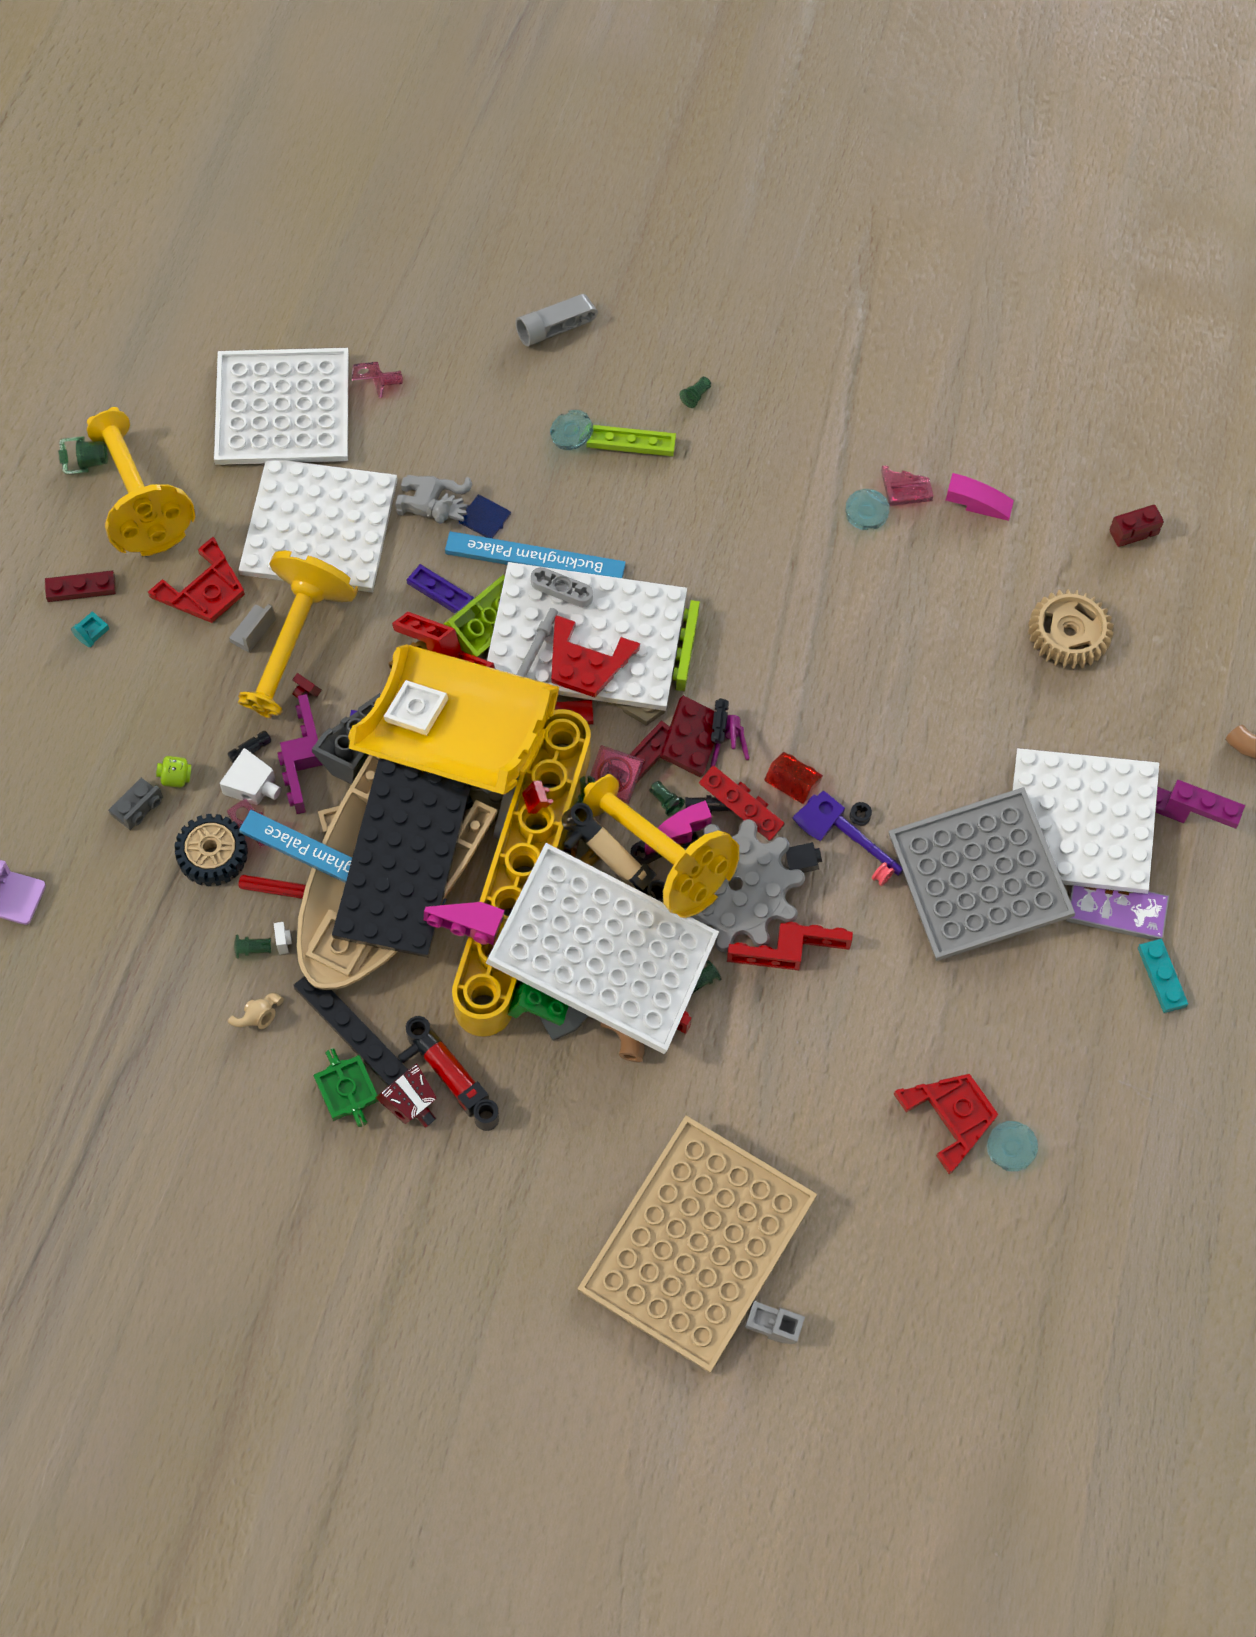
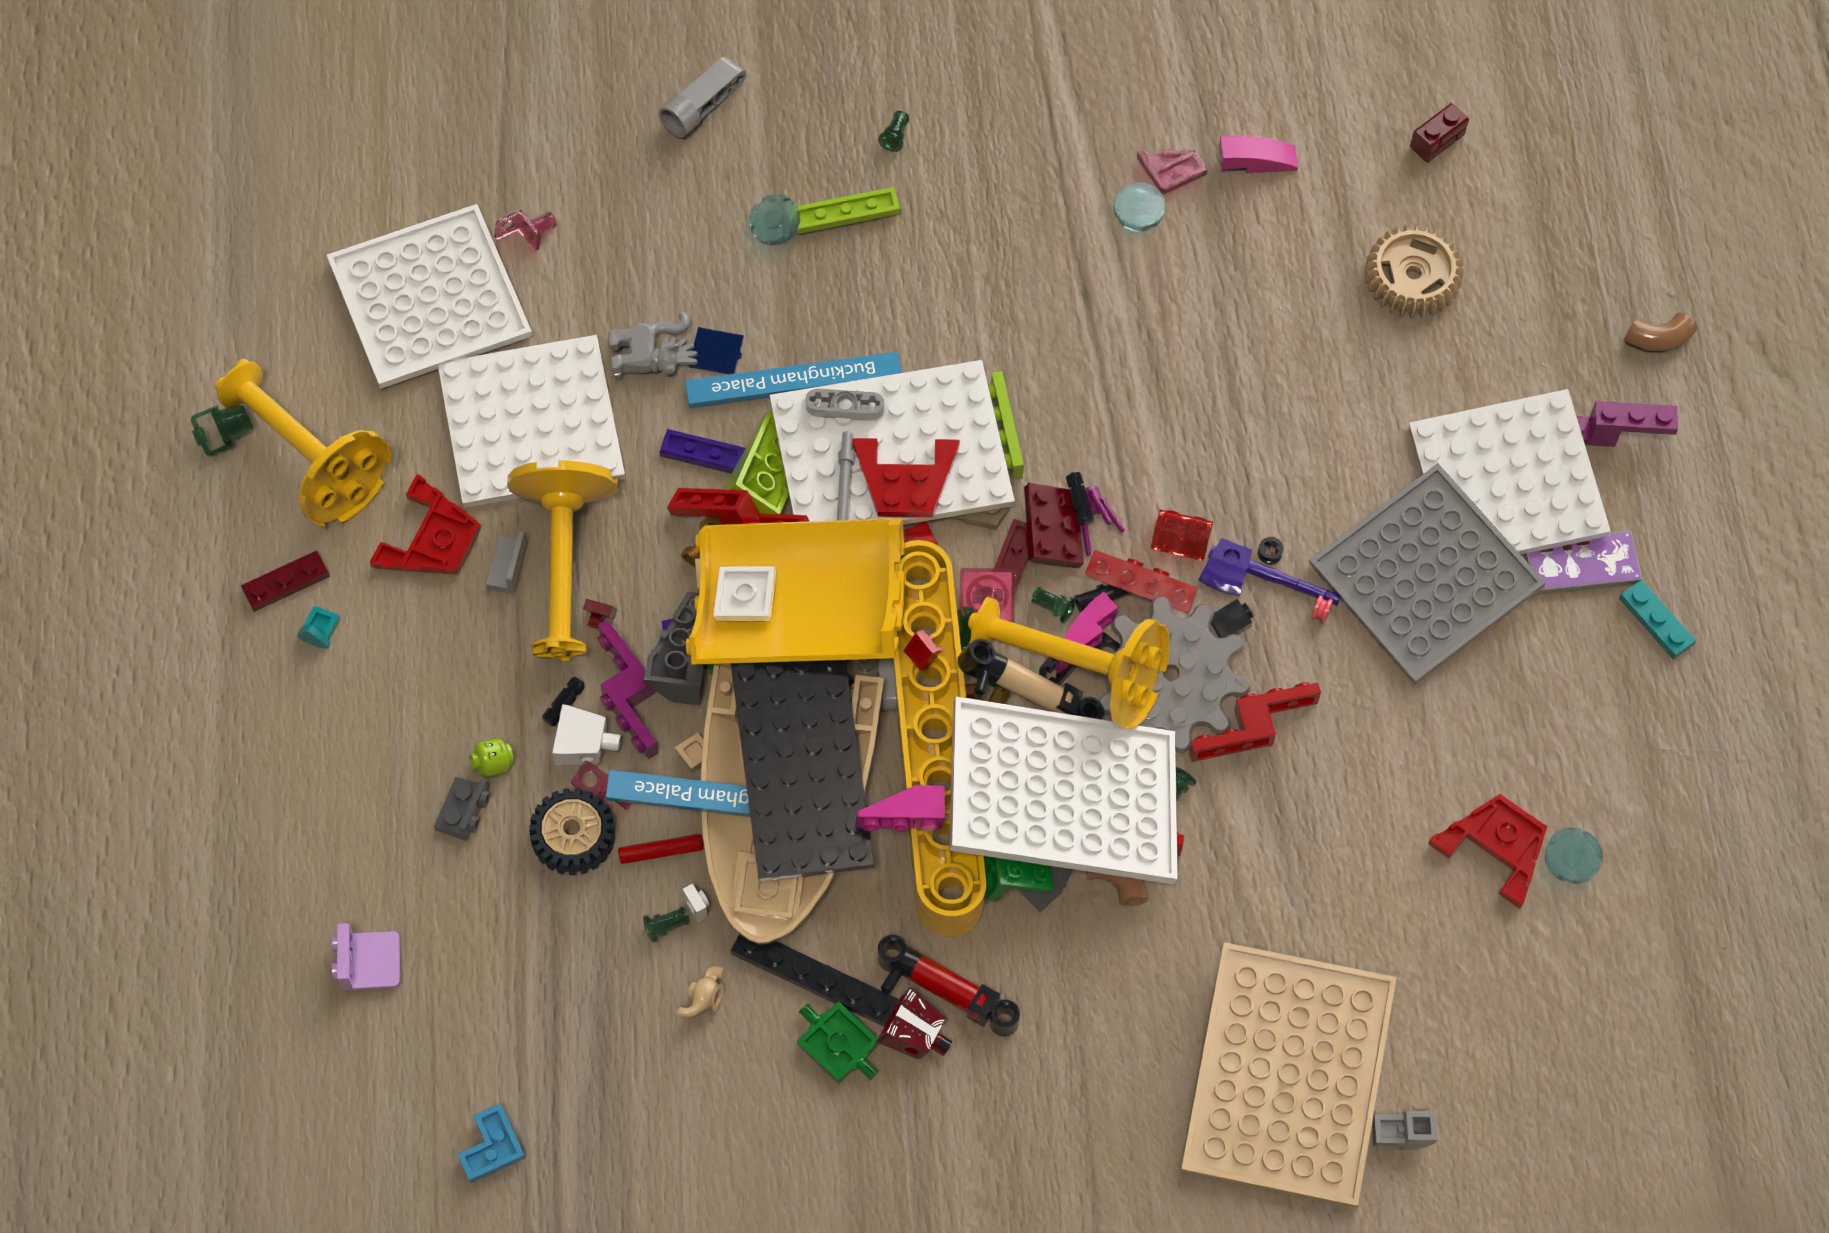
camera: 20 degrees left, 0 degrees up
(47, 1078) = (498, 1149): none -> dark azure plate

